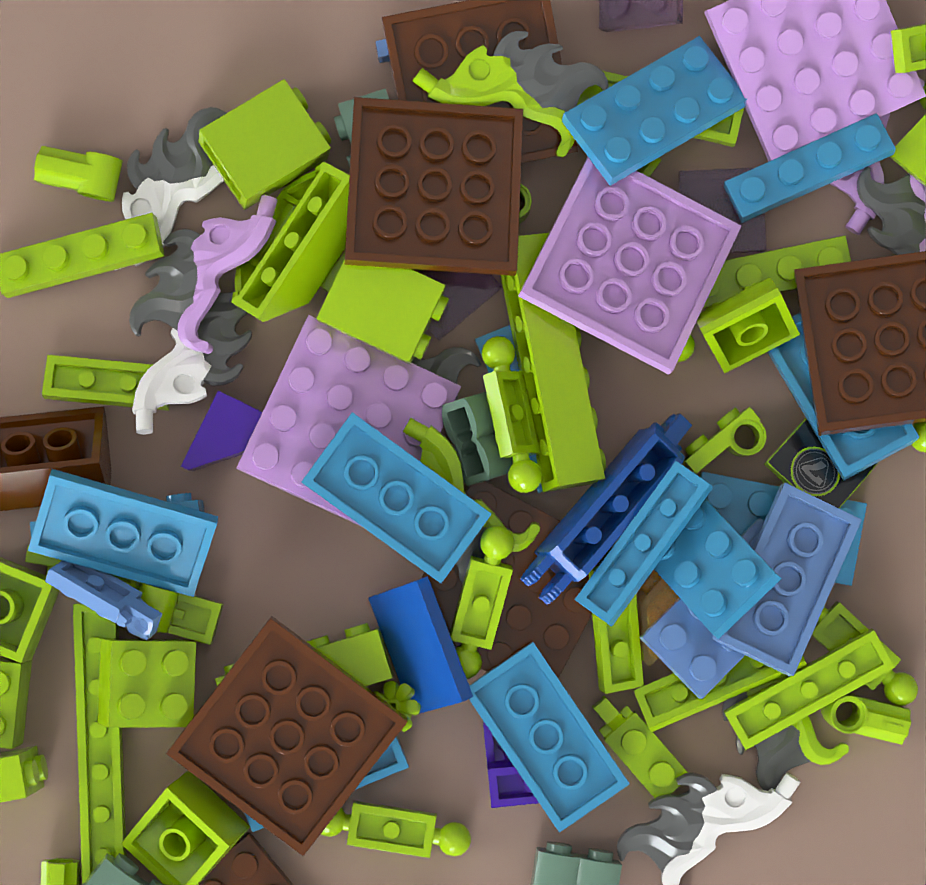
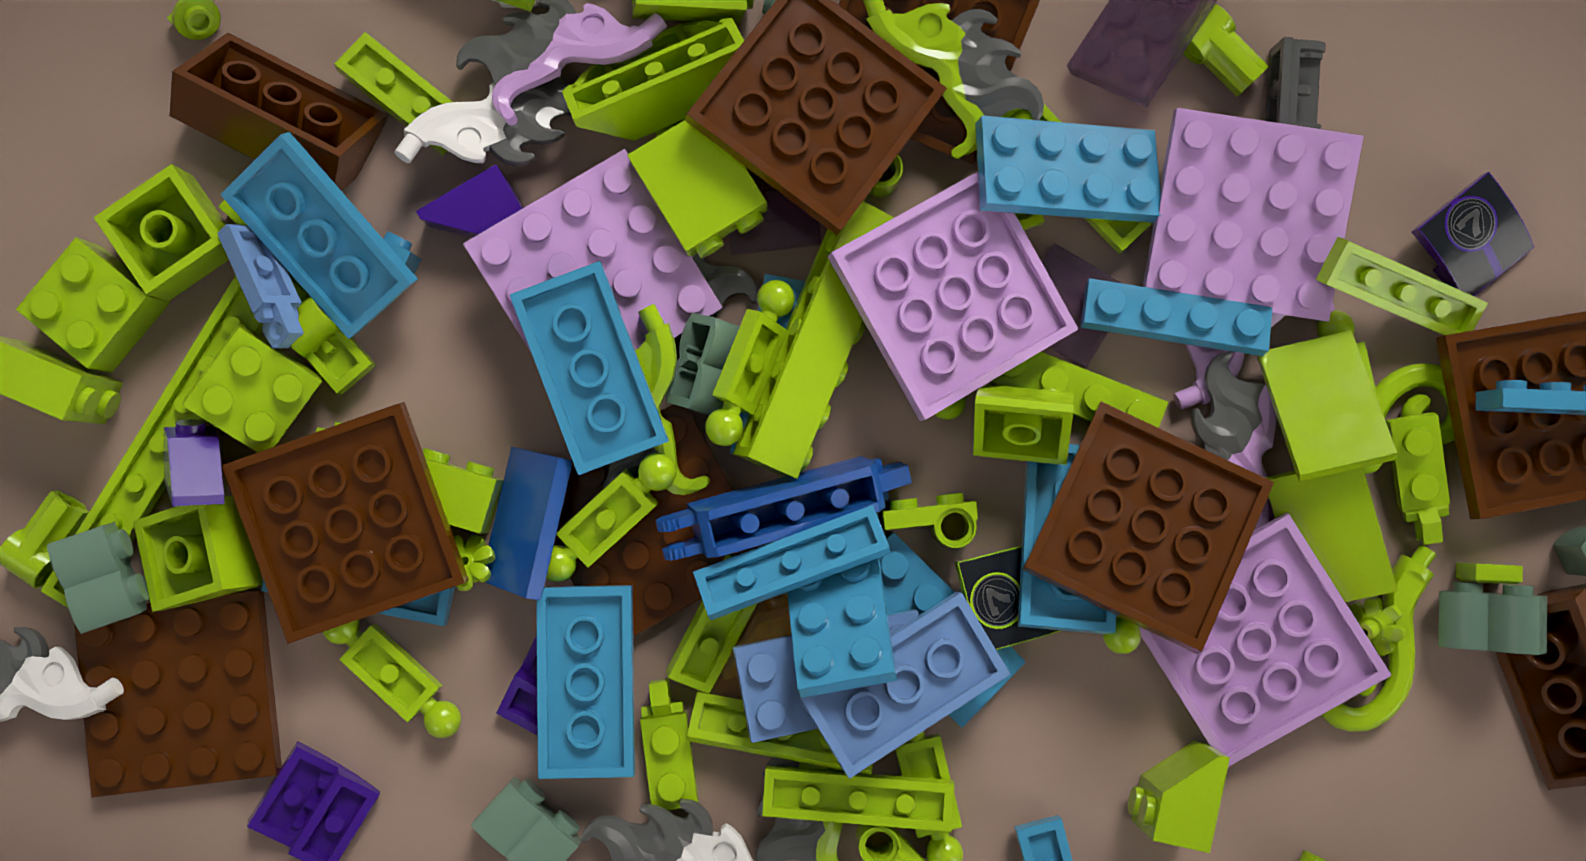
camera: 25 degrees right, 0 degrees up
(141, 768) = (192, 464): none -> slope

